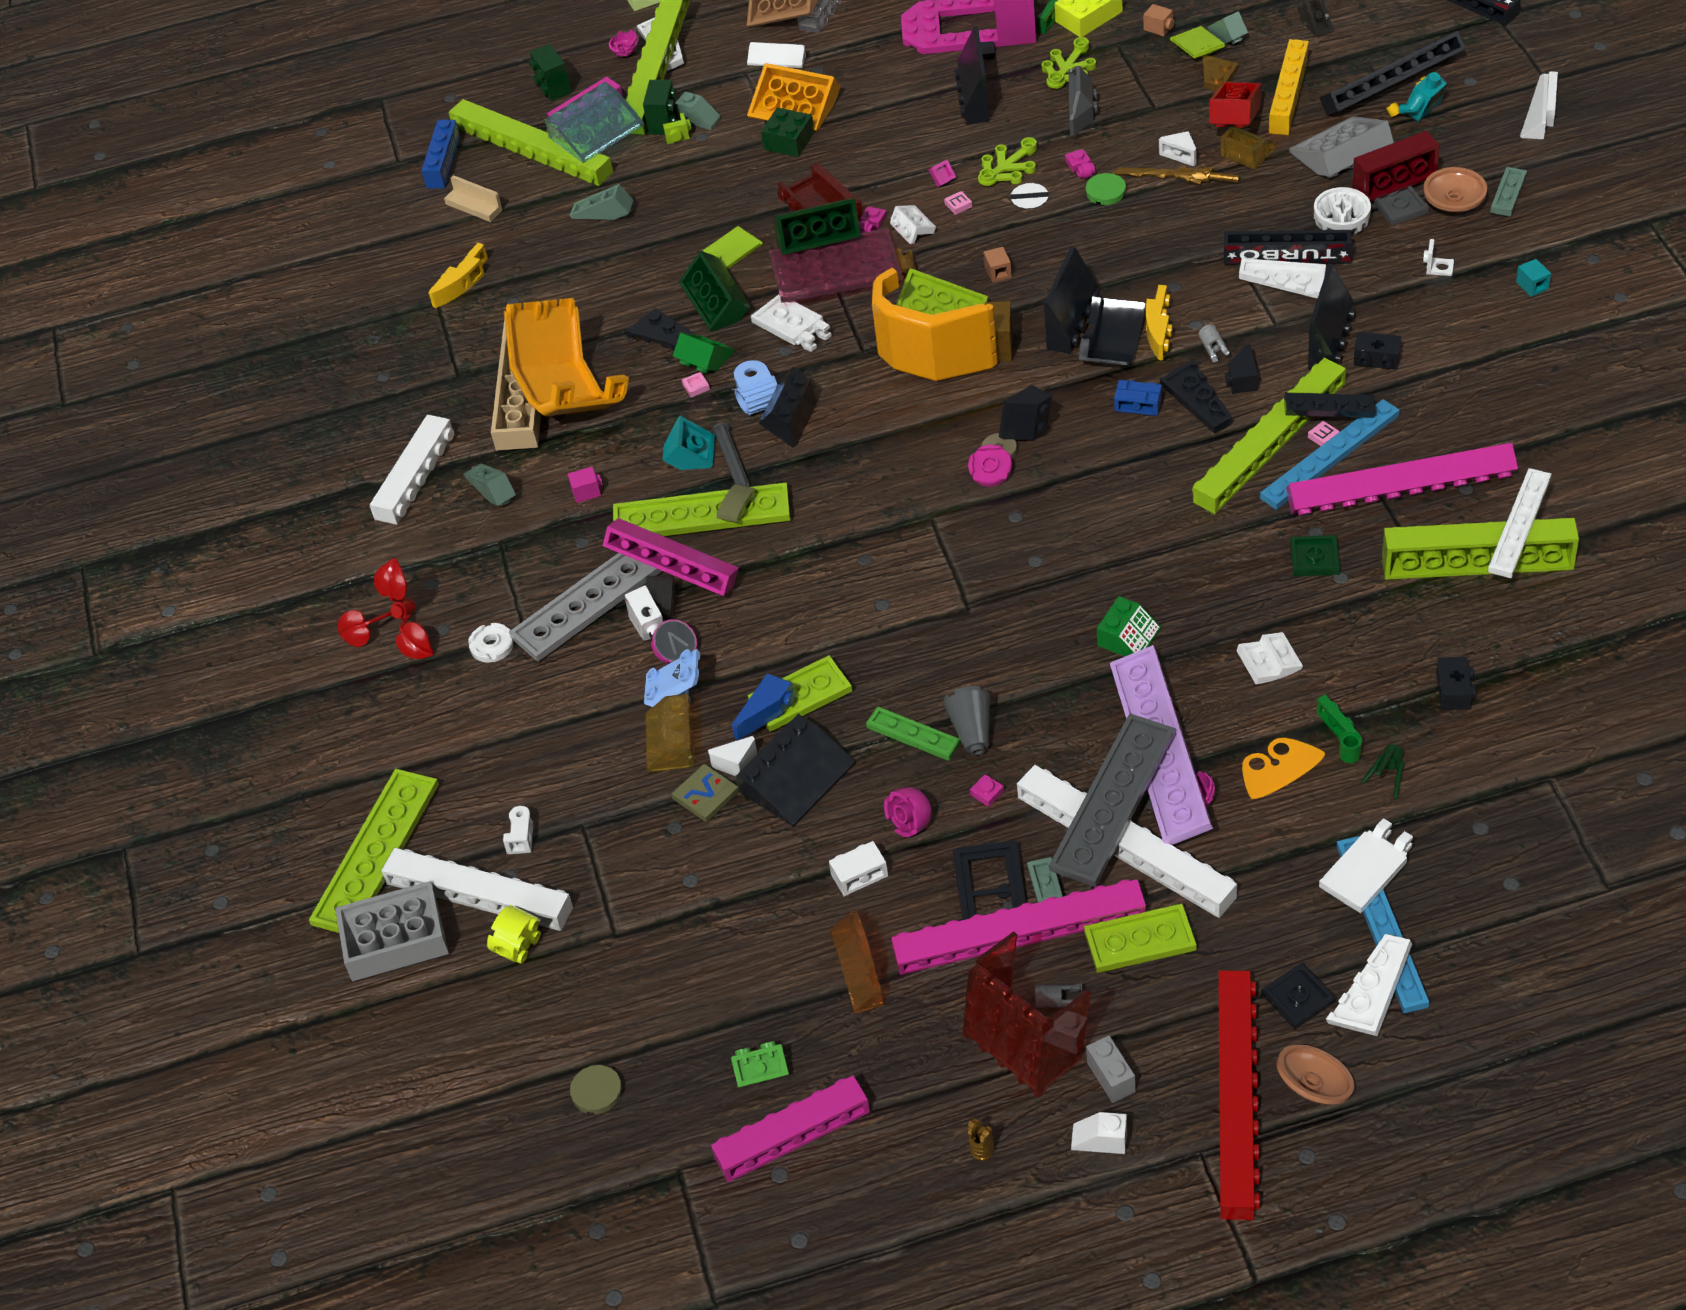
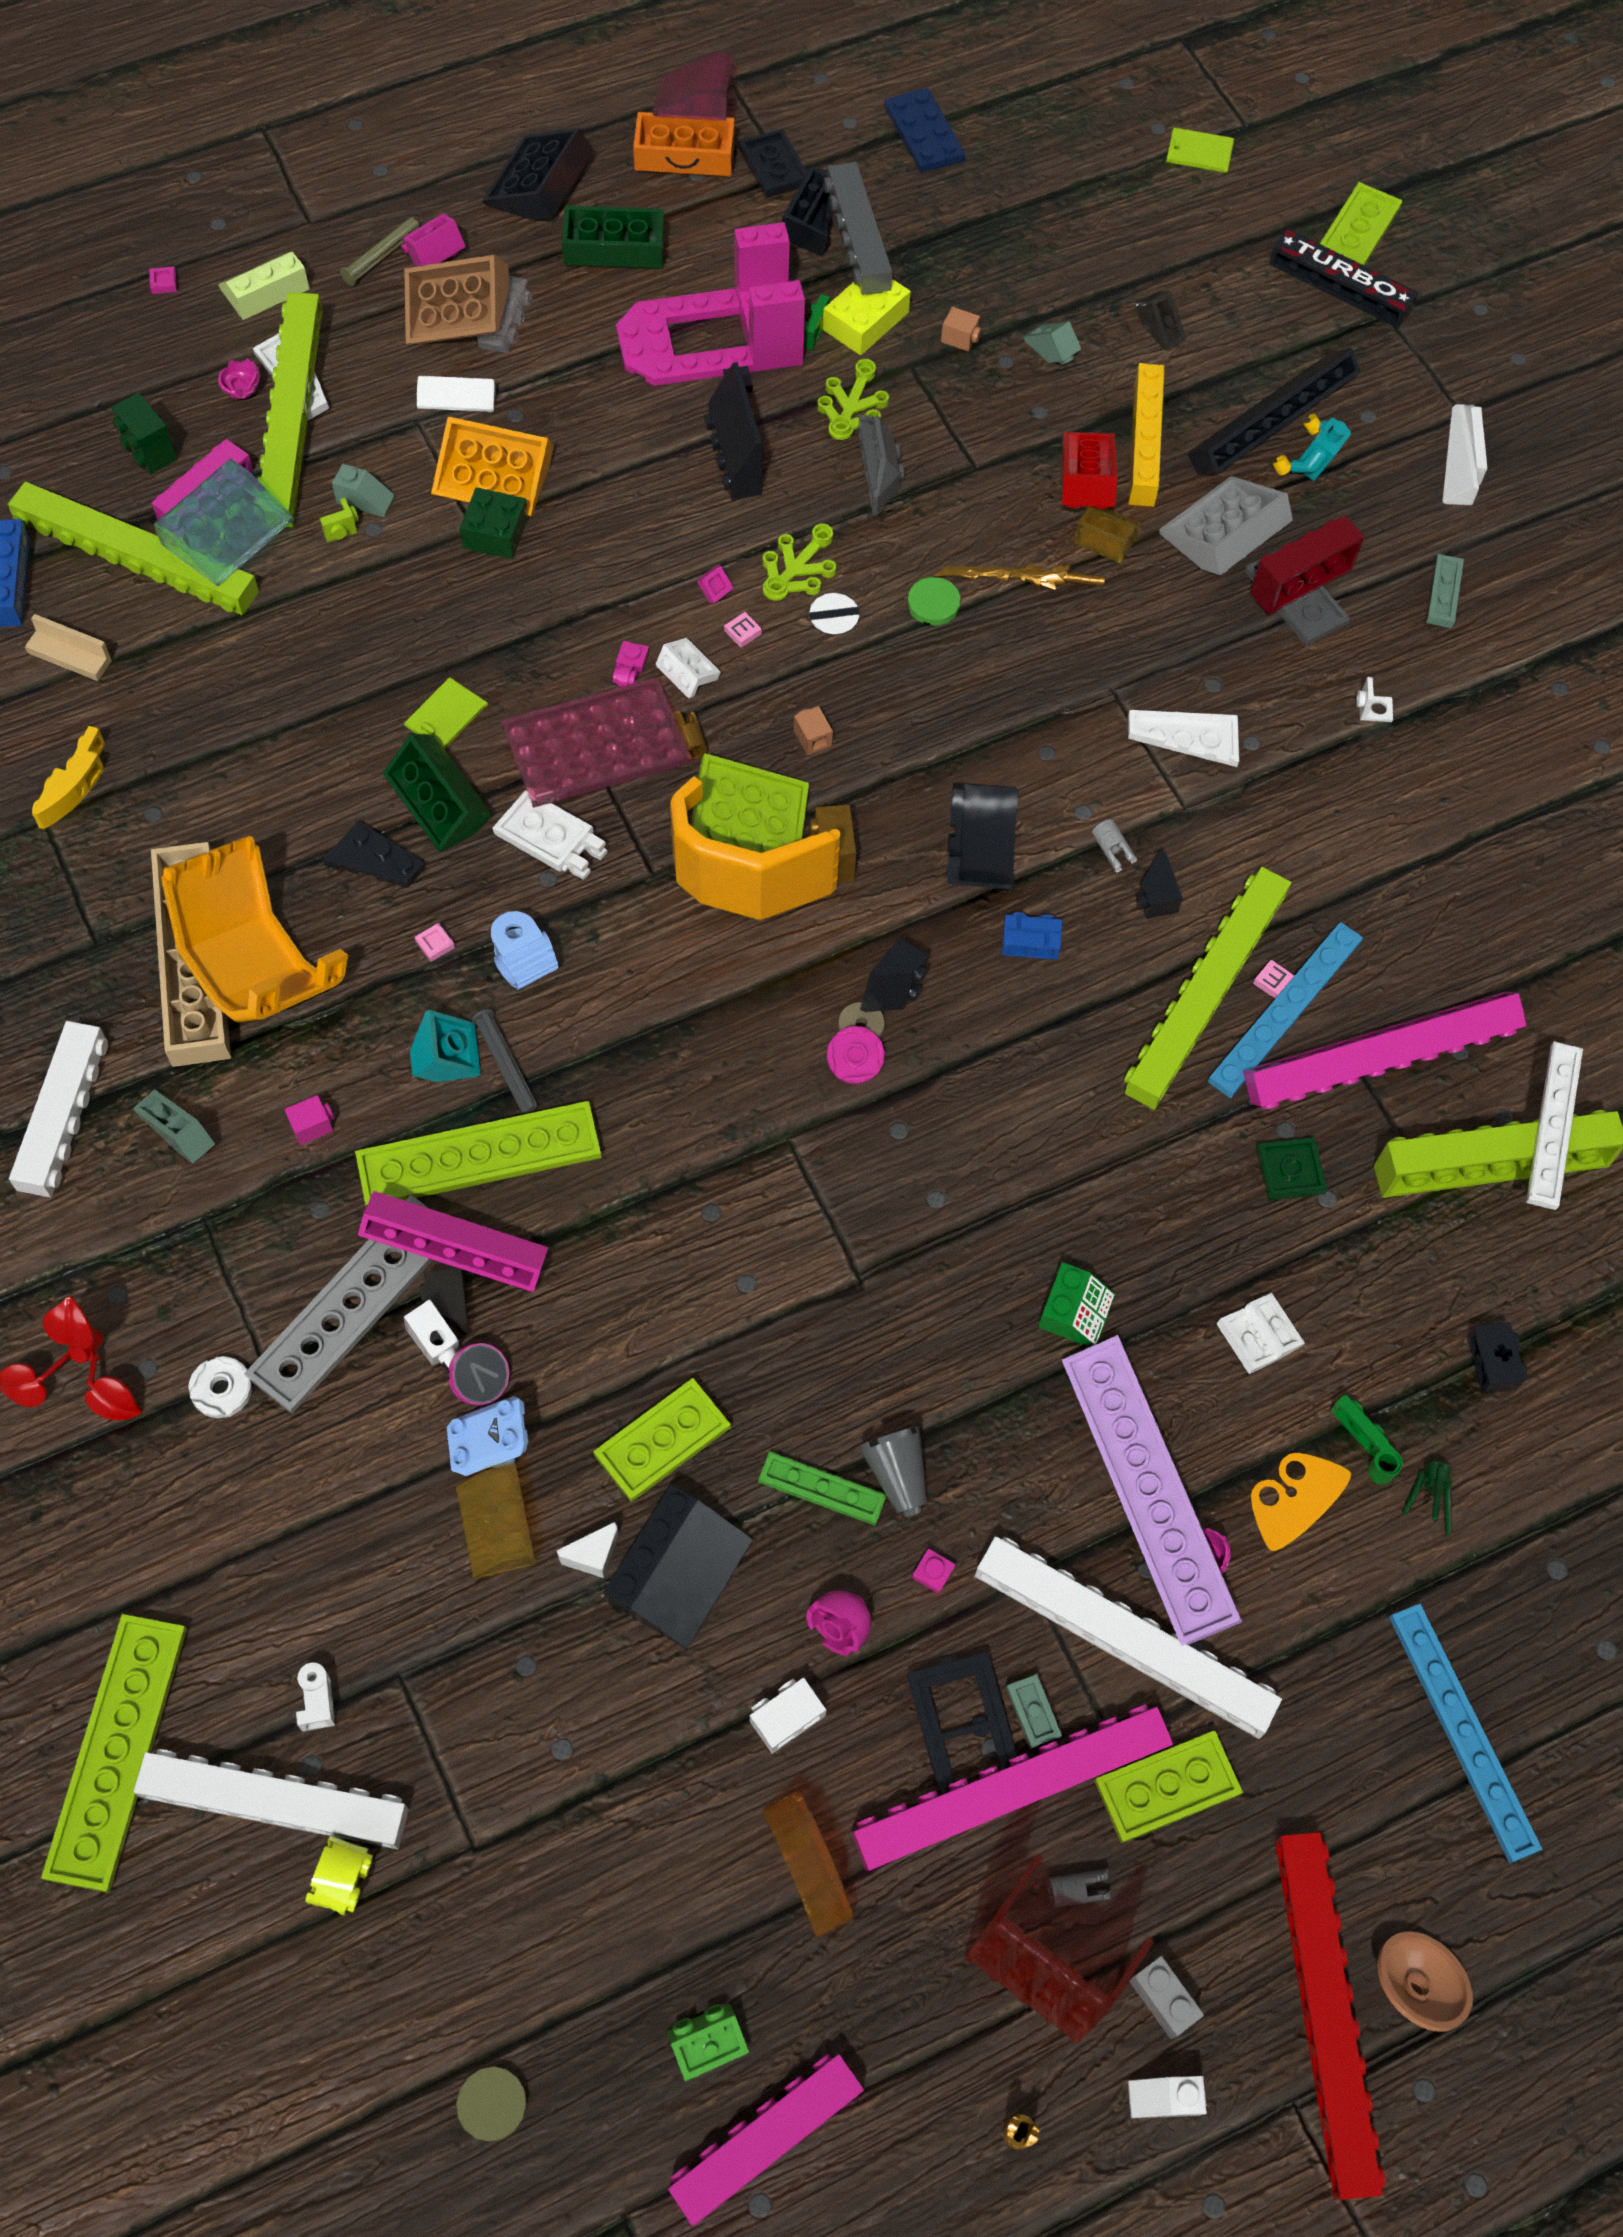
camera: 20 degrees left, 15 degrees up
(391, 931) = (162, 1887): light grey slope -> none
(604, 205) = (257, 652): sand green slope -> none
(659, 105) = (311, 487): dark green brick -> none
(701, 352) = (436, 891): green slope -> none
(705, 793) = (559, 1609): olive tile -> none
(734, 504) = (526, 1143): olive slope -> none
(764, 705) = (624, 1471): blue slope -> none
(789, 407) = (572, 981): black slope -> none
(815, 190) = (557, 634): clear red panel -> none
(816, 226) = (565, 689): dark green slope -> none
(1069, 303) = (925, 800): black slope -> none
(1081, 163) = (894, 560): dark pink plate -> none
(1112, 800) = (1108, 1590): dark grey plate -> none
(1157, 322) = (1036, 818): yellow slope -> none
(1178, 147) = (1021, 535): white slope -> none
(1194, 393) = (1103, 927): black wing -> none
(1197, 42) = (1016, 362): lime container -> none
(1217, 71) = (1048, 410): pearl gold wing -> none
(1288, 246) = (1186, 690): black brick -> none
(1298, 996) = (1377, 1851): black tile -> none
(1329, 405) = (1280, 942): black plate -> none
(1330, 320) = (1261, 813): black slope -> none
(1342, 203) = (1249, 618): white gear -> none
(1367, 867) = (1437, 1656): white tile -> none
(1371, 993) = (1470, 1846): white wing -> none
(1377, 350) = (1322, 847): black brick -> none
(1455, 189) = (1382, 584): nougat dish -> none
(1533, 277) = (1496, 724): teal brick -> none

